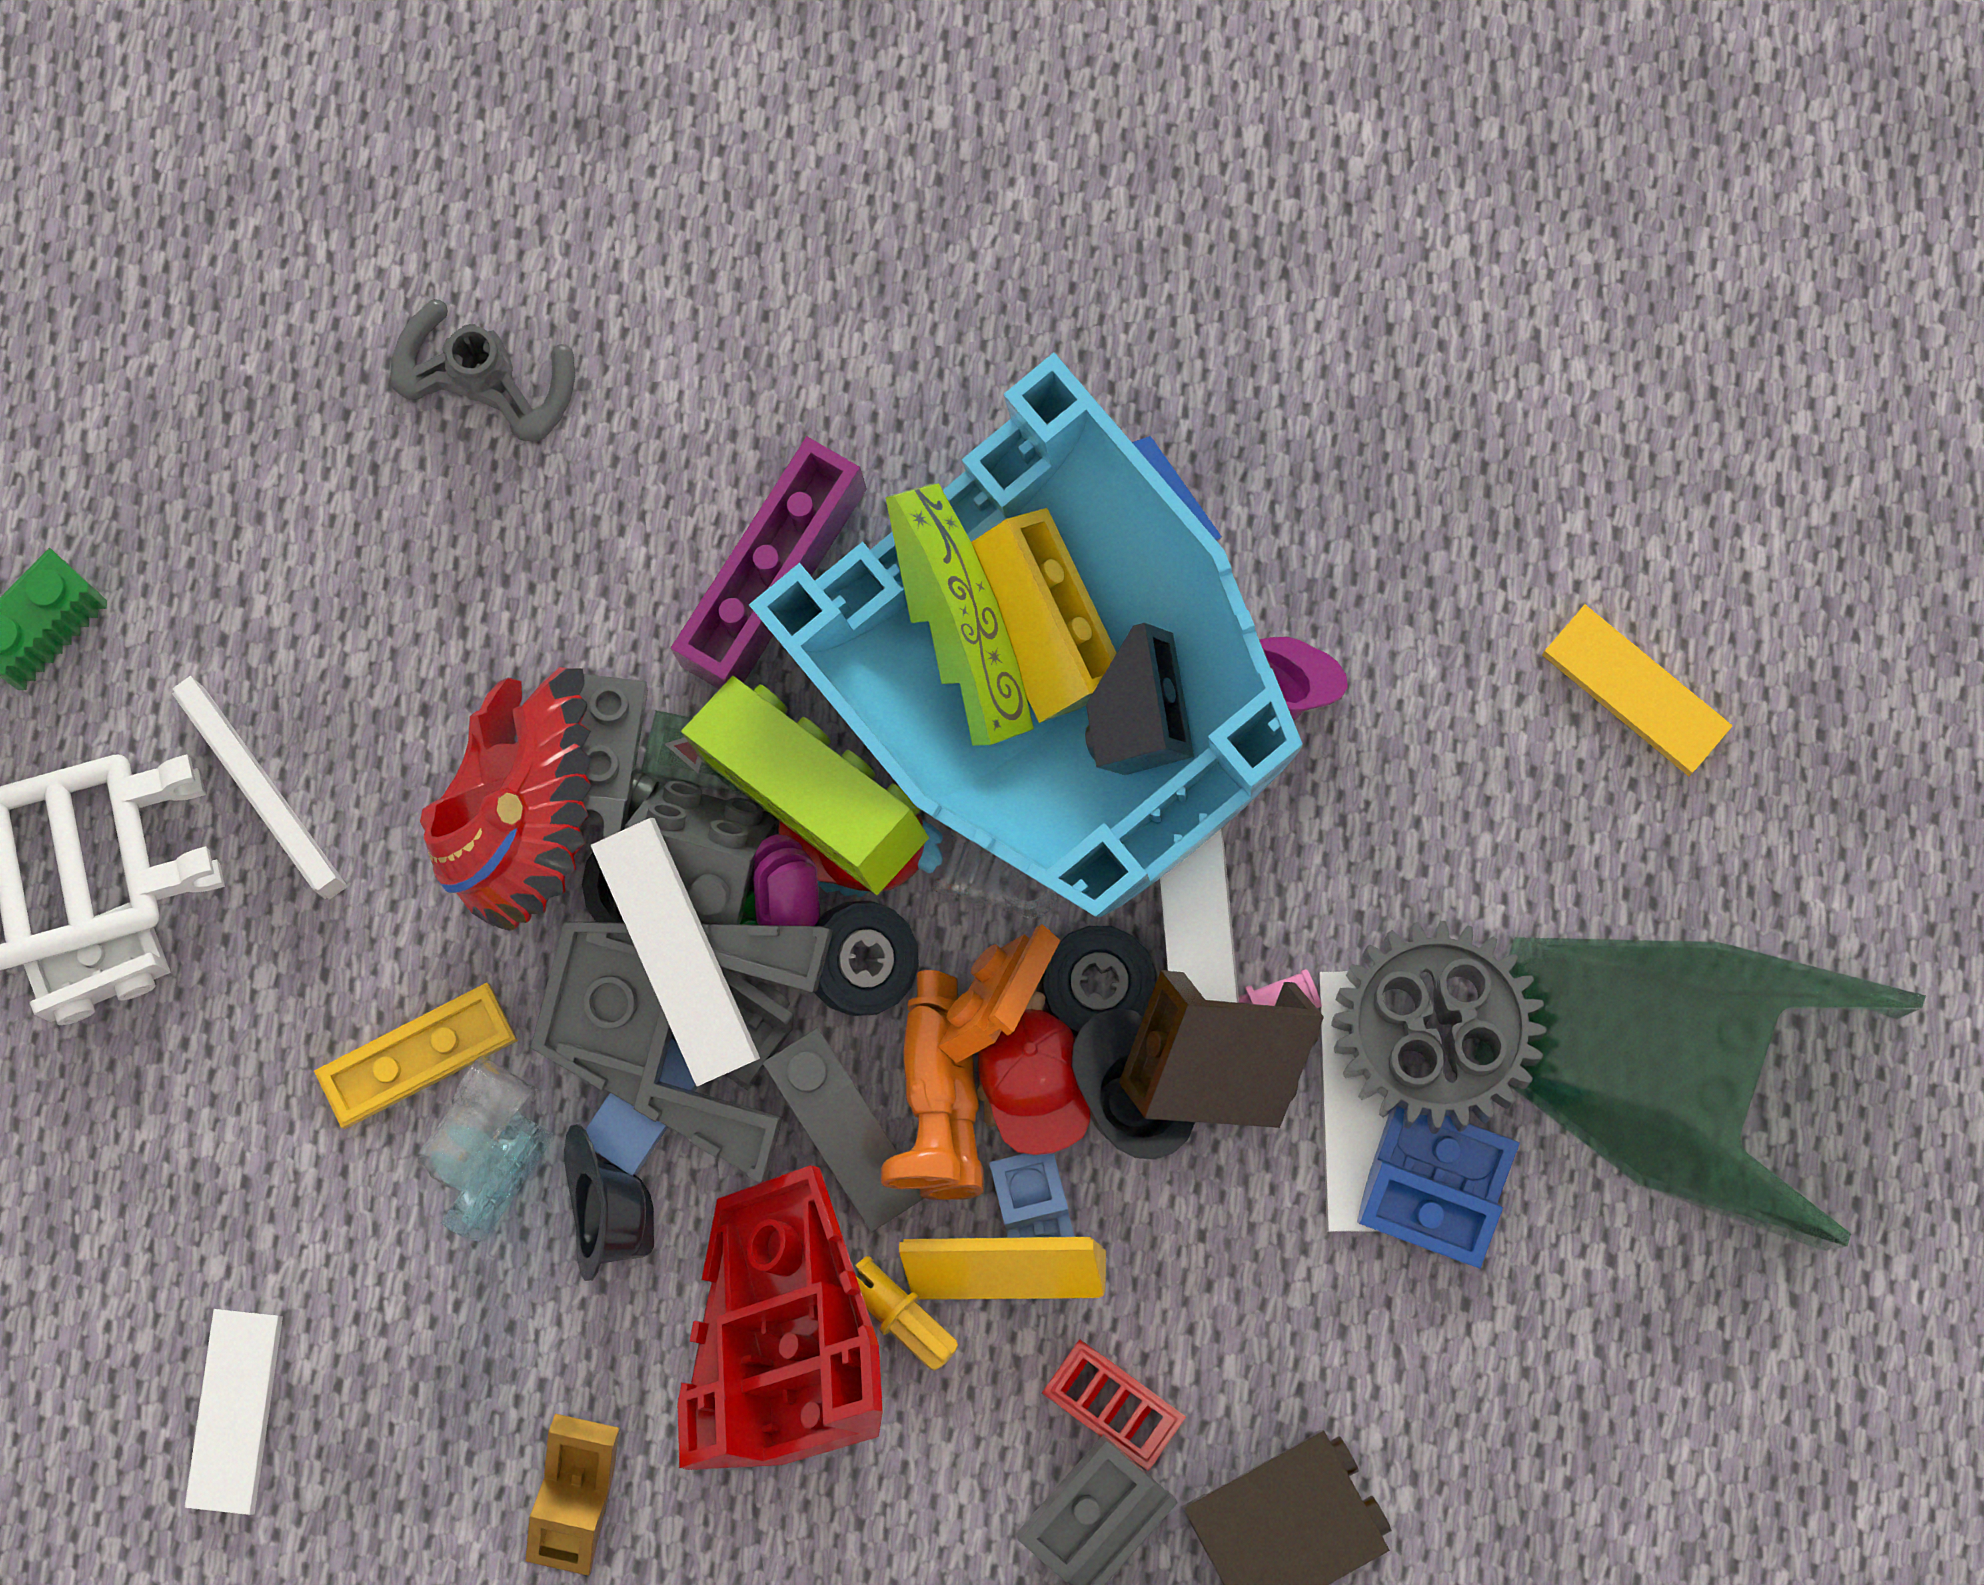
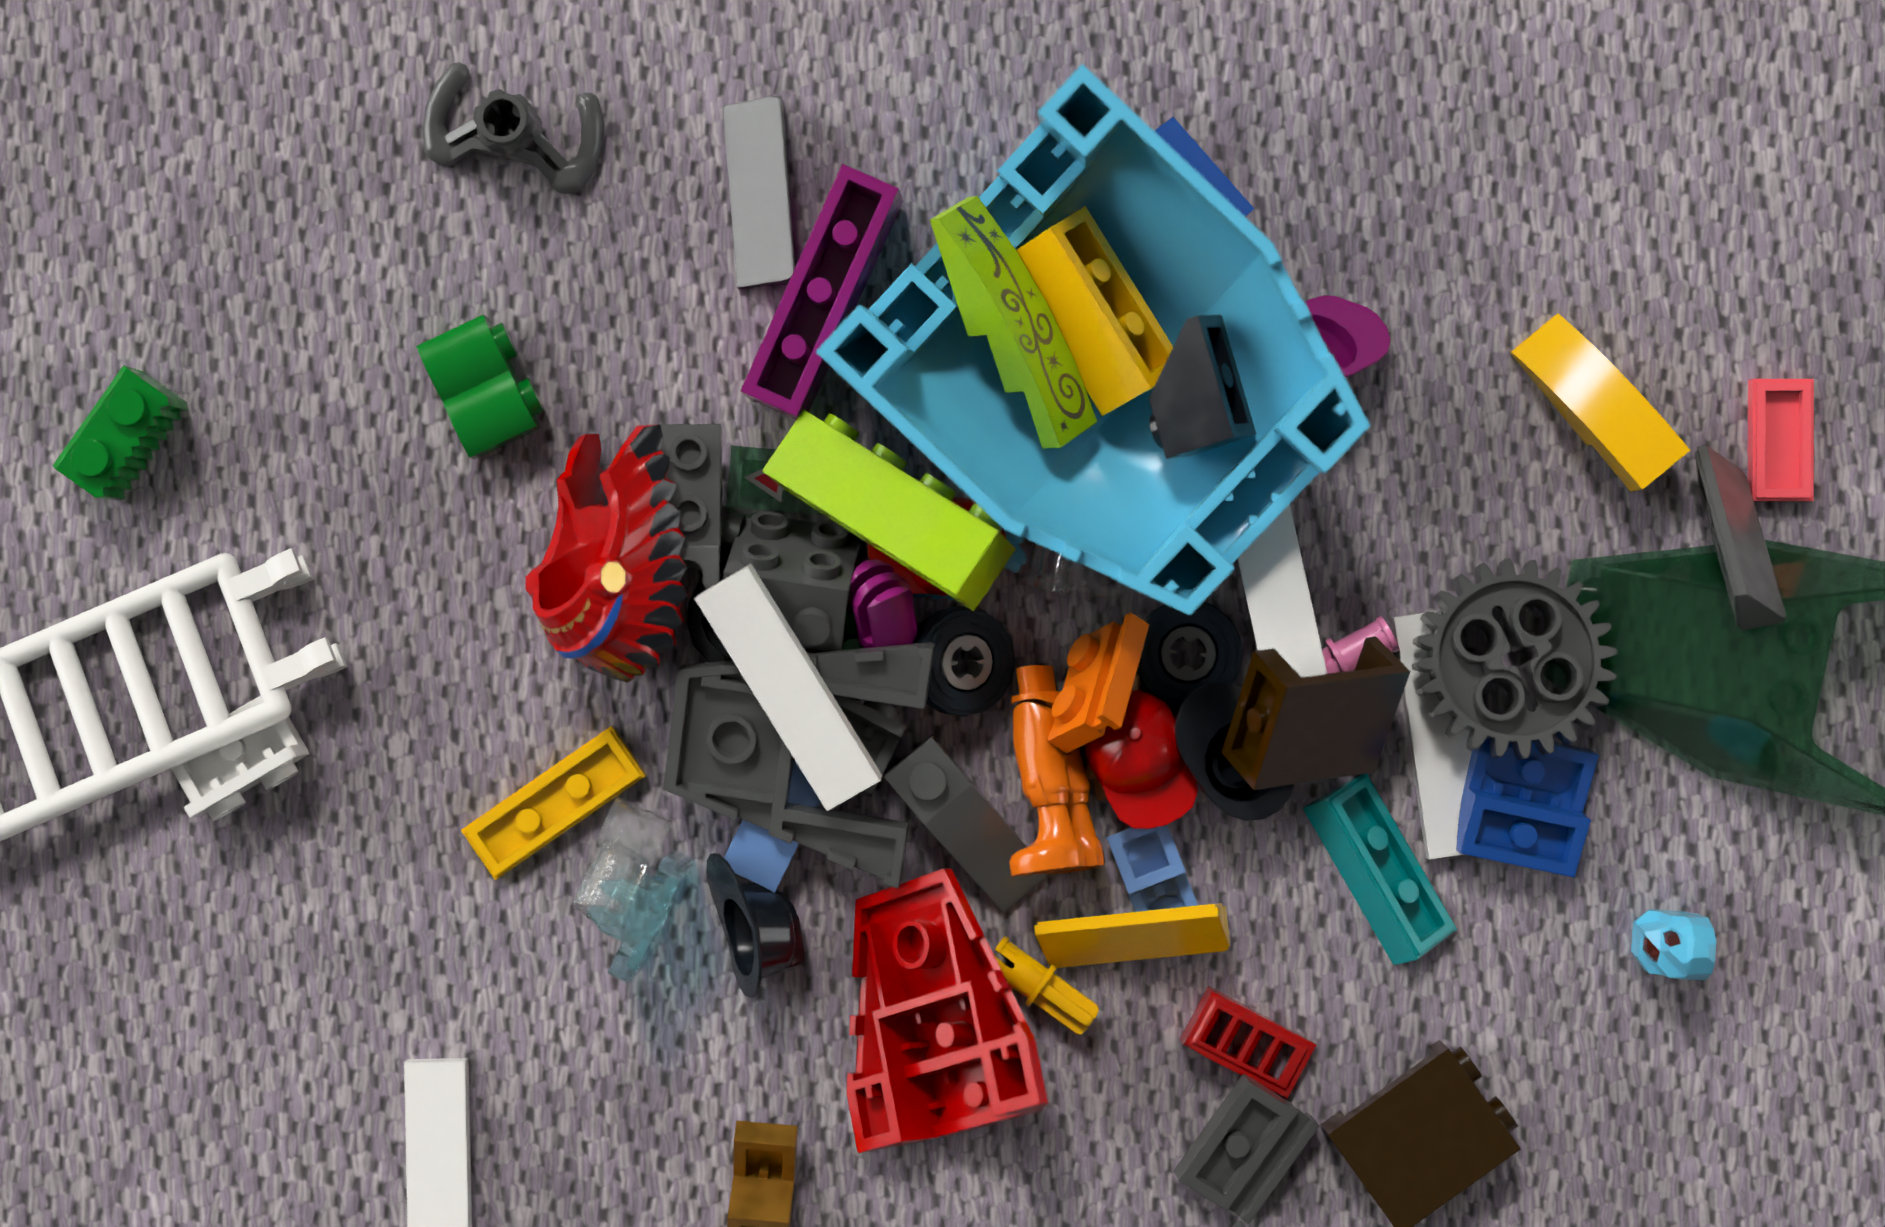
camera: 15 degrees left, 10 degrees up
(258, 788) = (363, 569): white tile -> none
(408, 618) = (480, 386): none -> green brick
(722, 461) = (760, 192): none -> slope
(1276, 1237) = (1380, 870): none -> teal slope
(1557, 777) = (1600, 403): none -> yellow slope
(1578, 1353) = (1674, 944): none -> medium azure rock
(1637, 690) = (1666, 306): yellow tile -> none
(1685, 930) = (1738, 541): none -> dark grey slope
(1743, 841) = (1781, 440): none -> coral tile

